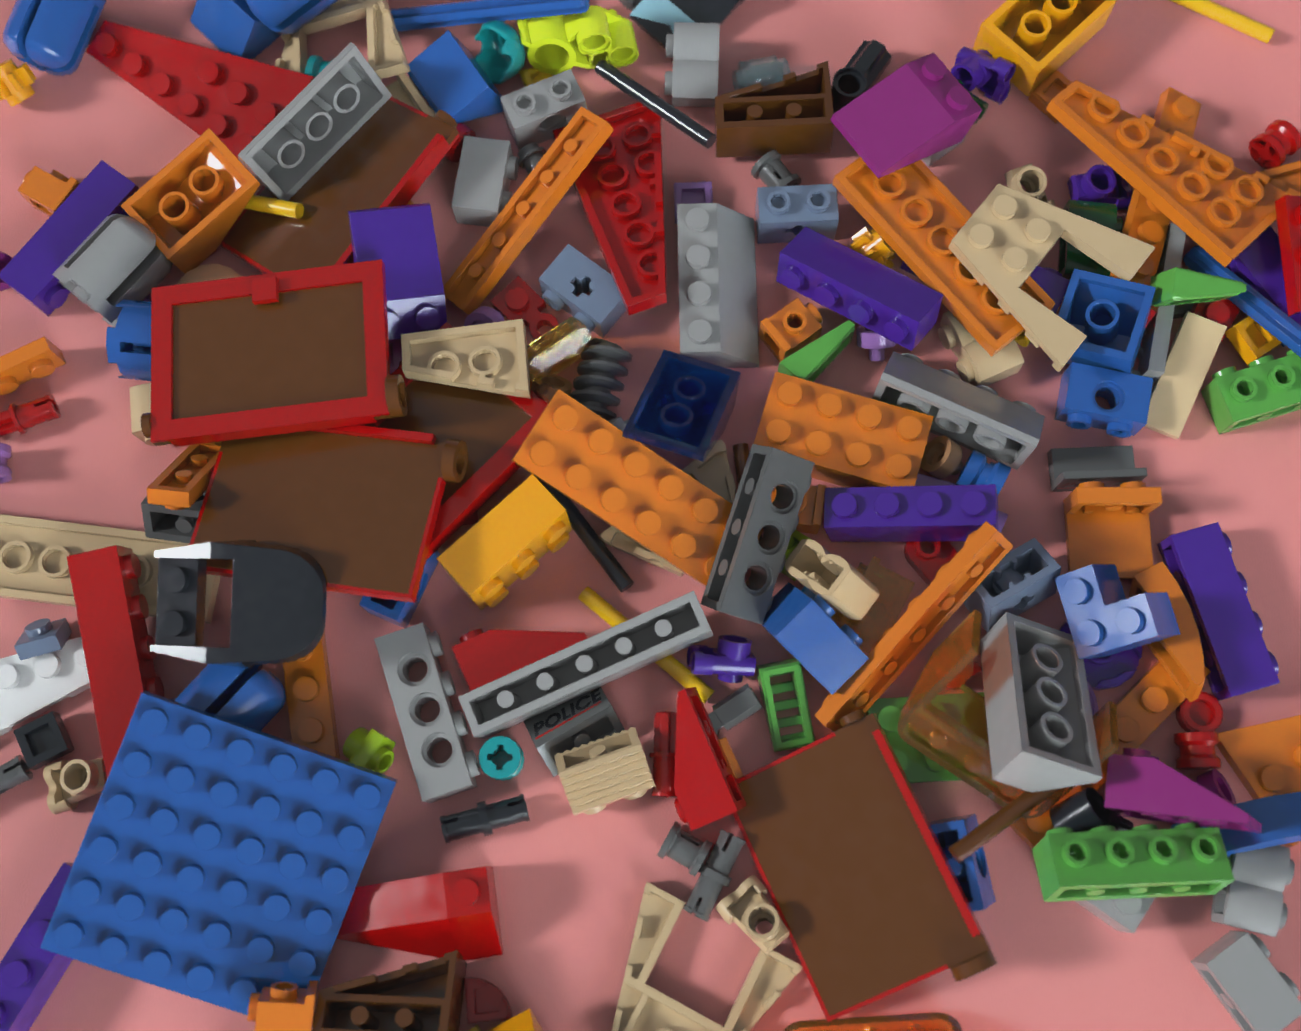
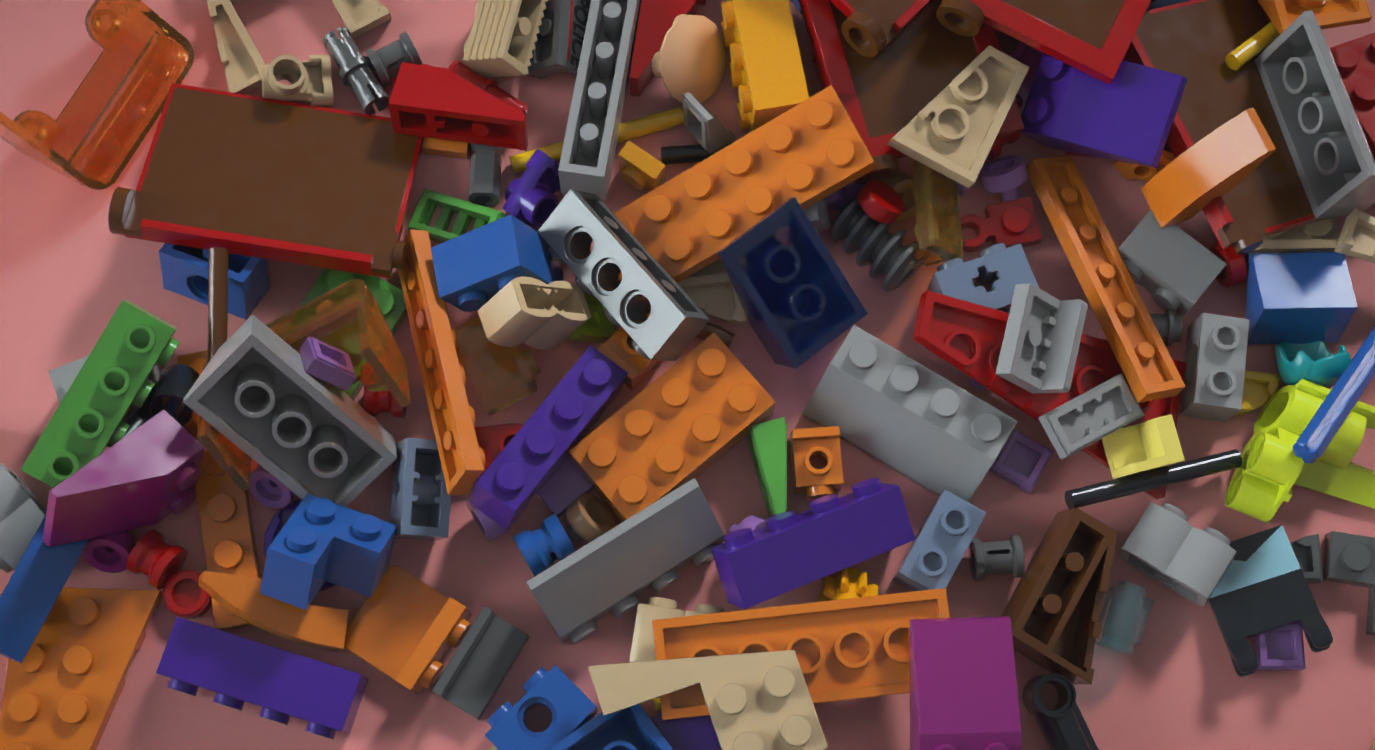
camera: 115 degrees right, 0 degrees up
(412, 160) = (1208, 169): none -> orange slope
(538, 606) = (691, 58): none -> light nougat dish
(575, 383) = (880, 201): none -> red tile
(584, 563) = (704, 124): none -> light grey slope
(613, 208) = (1041, 340): none -> light grey bracket
(641, 115) = (1143, 447): none -> light yellow panel
(642, 156) = (1091, 416): none -> light grey plate
(652, 589) = (640, 168): none -> light orange plate
(980, 705) = (327, 363): none -> medium lavender tile

